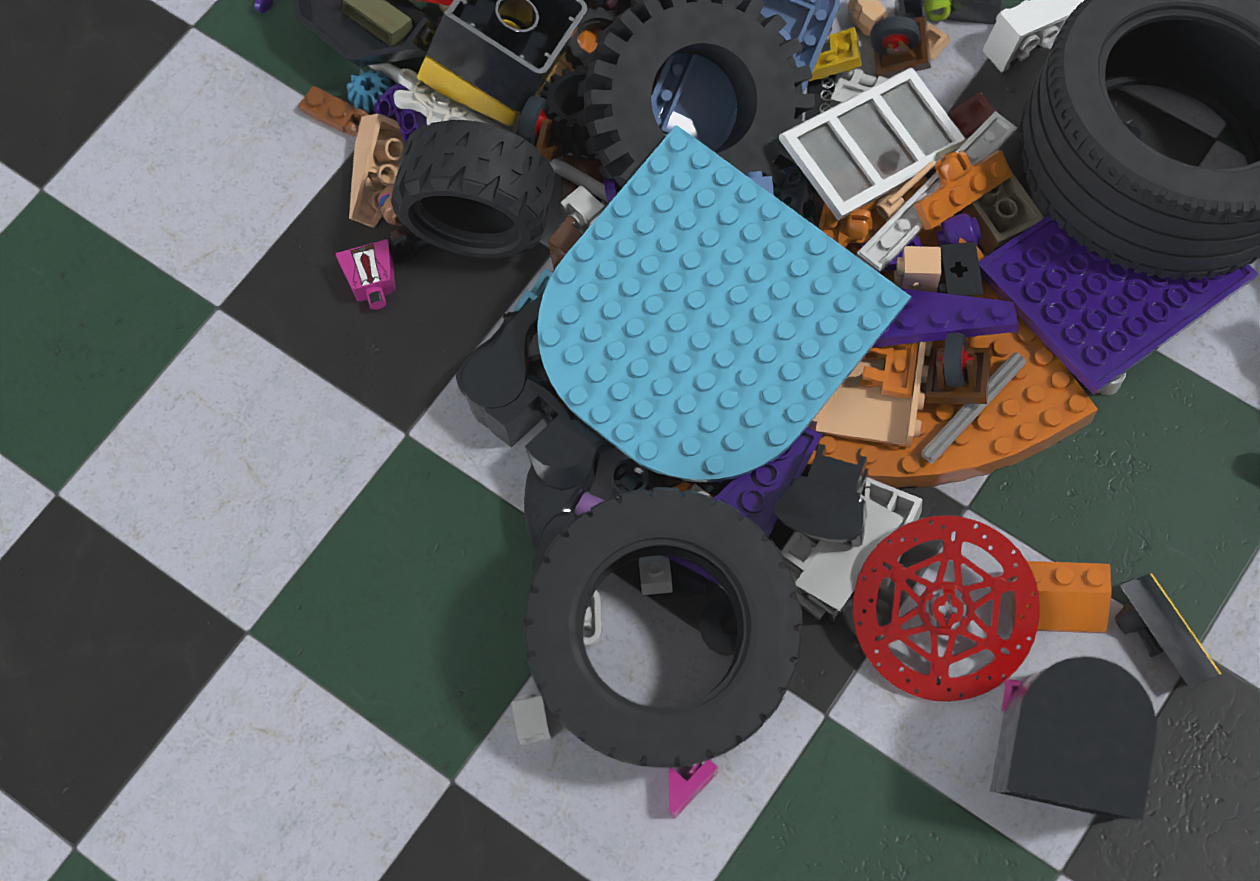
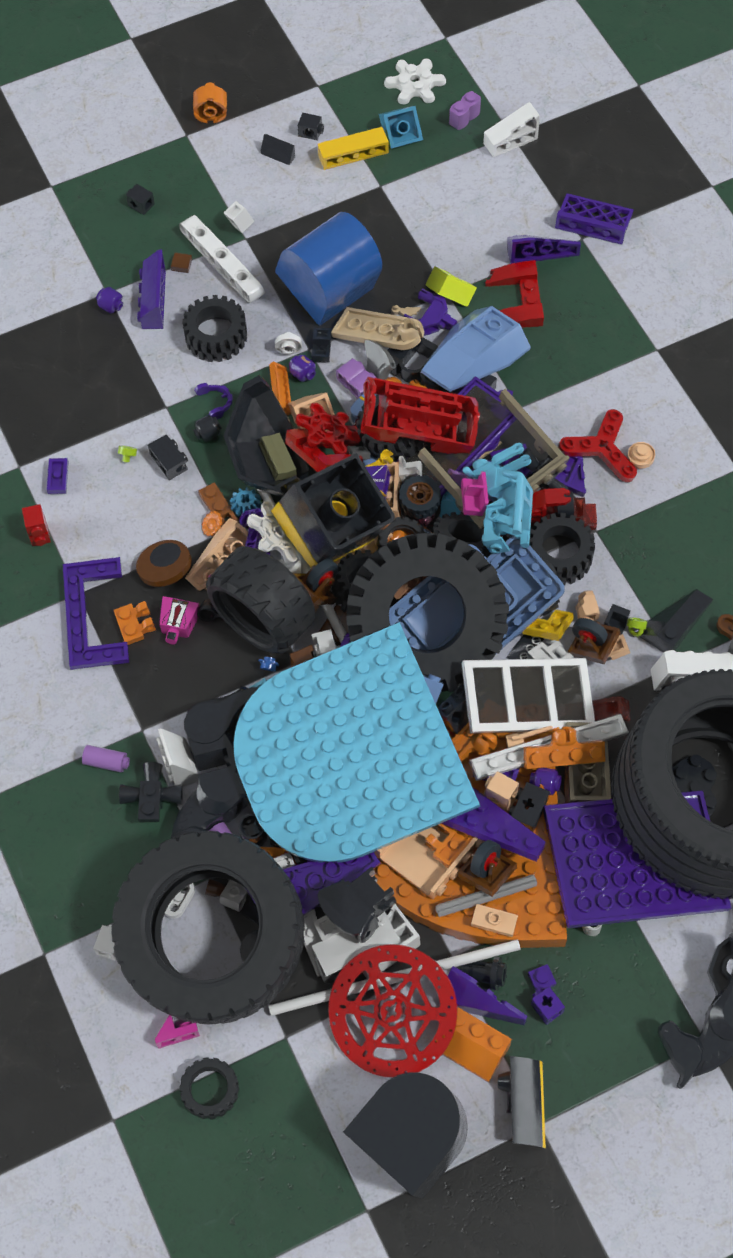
camera: 25 degrees right, 5 degrees down
(101, 174) = (57, 476): none -> dark purple plate
(112, 246) = (36, 525): none -> red piece
(176, 101) = (127, 451): none -> lime tile
(233, 82) = (168, 457): none -> black brick
(264, 24) = (207, 428): none -> black head
(267, 379) = (80, 653): none -> dark purple plate
(309, 213) = (163, 563): none -> reddish brown piece
(311, 313) = (129, 624): none -> orange plate
(341, 136) = (211, 523): none -> orange piece
(382, 492) = (105, 758): none -> medium lavender brick
(471, 505) = (150, 793): none -> black brick
(480, 444) = (177, 758): none -> white slope
(520, 270) = (268, 664): none -> blue plate
(624, 579) = (214, 888): none -> reddish brown hose
(780, 798) = (218, 1109): none -> black tyre
(885, 599) = (356, 987): none -> white piece
(1002, 432) = (494, 920): none -> light nougat plate
(1022, 502) = (488, 972): none -> black piece
(1042, 538) = (482, 1001): none -> dark purple wedge
(1090, 474) = (542, 978): none -> dark purple plate
(1128, 506) = (547, 1013): none -> dark purple brick

